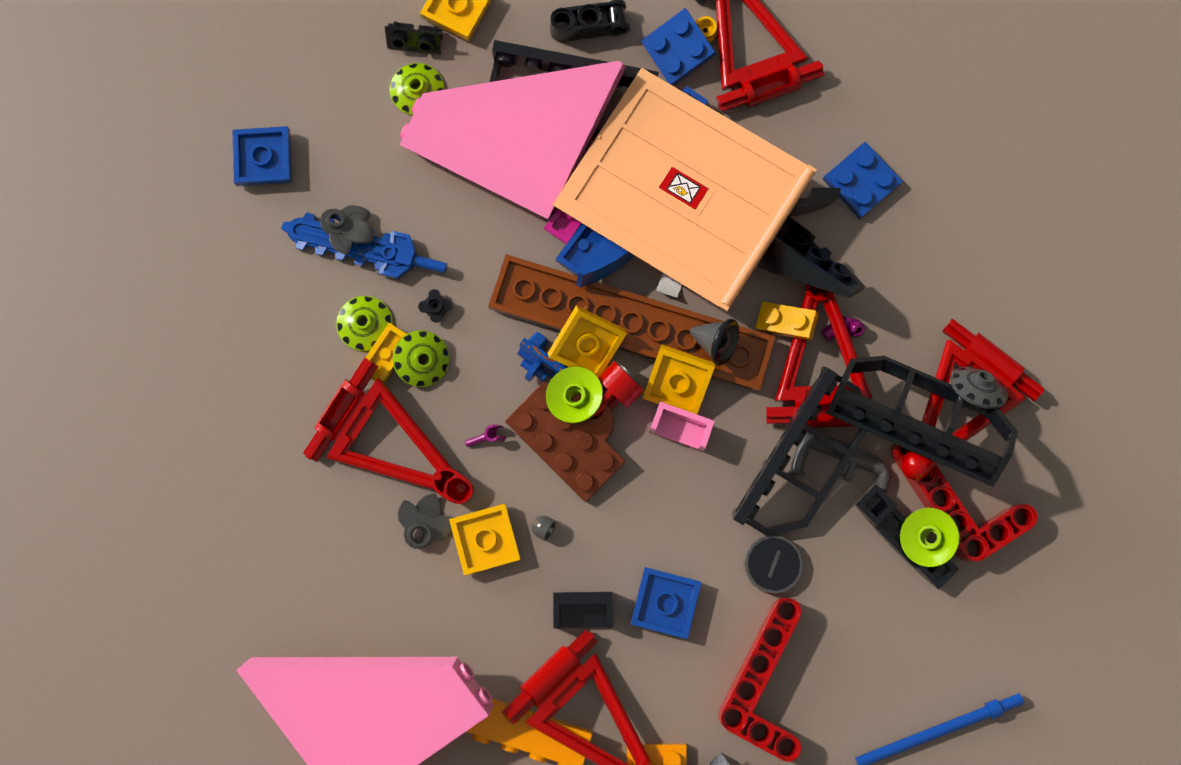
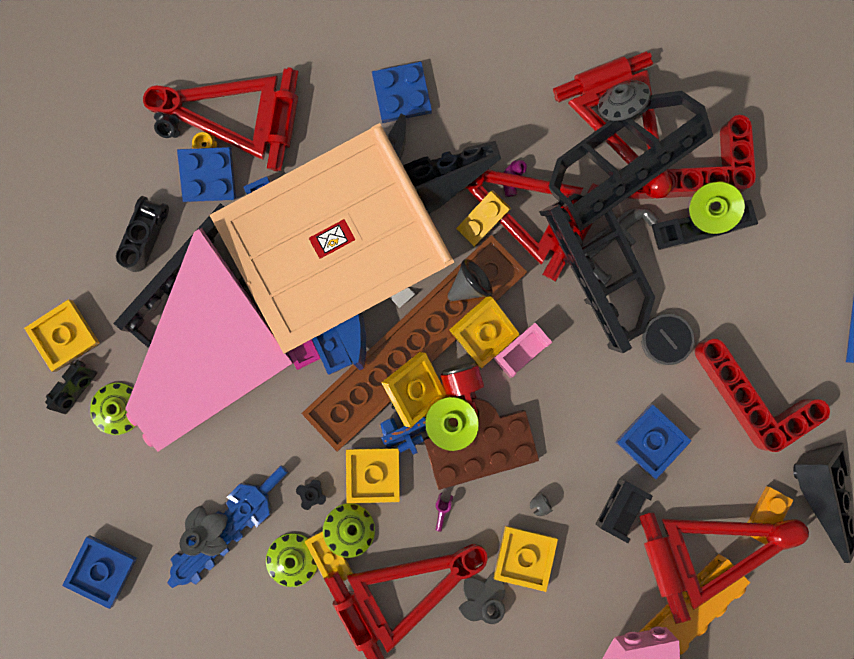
camera: 65 degrees left, 5 degrees up
(484, 352) = (372, 475): none -> yellow plate

